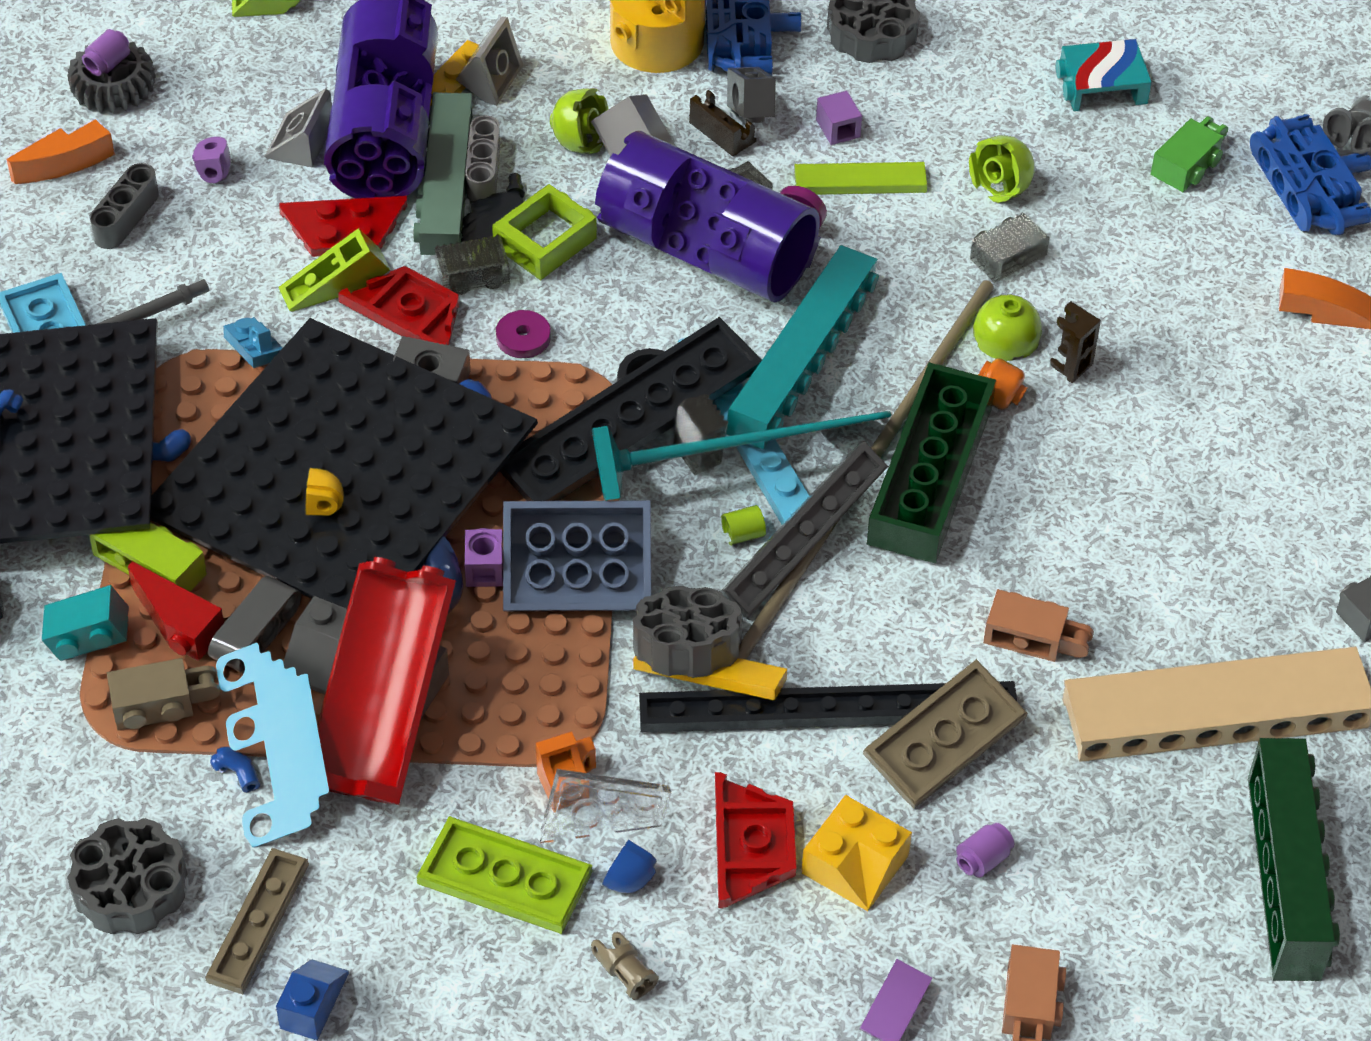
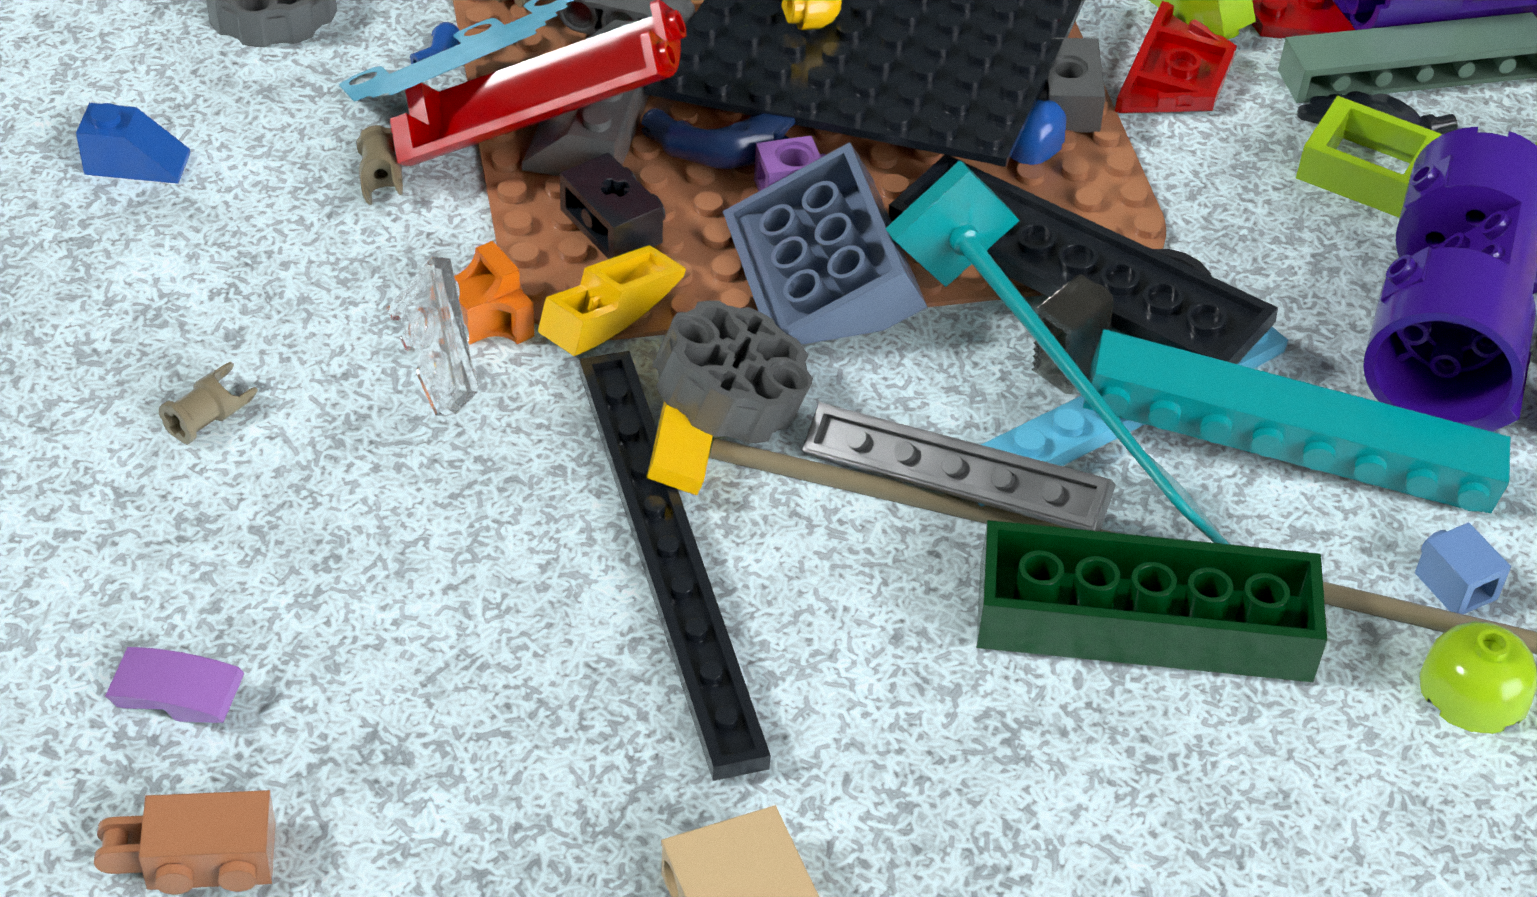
camera: 75 degrees right, 5 degrees down
(257, 921) = (236, 100): dark tan tile -> none
(379, 823) = (378, 162): none -> dark tan piece
(472, 265) = (1272, 103): clear smoke brick -> none
(482, 158) = (1460, 83): light grey beam -> none
(493, 673) = (611, 206): none -> black brick
(504, 874) = (331, 285): lime tile -> none
(527, 345) = (1190, 171): magenta piece -> none
(590, 691) = (608, 299): none -> yellow slope
(630, 869) = (353, 384): blue piece -> none
(744, 524) = (953, 415): lime beam -> none
(751, 840) = (423, 499): red wing -> none
(856, 852) = (416, 604): yellow slope -> none
(927, 307) = (1462, 568): none -> medium blue brick
(945, 733) = (649, 682): dark tan tile -> none
(984, 849) = (454, 757): medium lavender brick -> none
(1009, 382) = (1353, 674): orange head -> none
(1035, 627) = (885, 769): nougat brick -> none
(1077, 341) = (1470, 748): dark brown hinge -> none

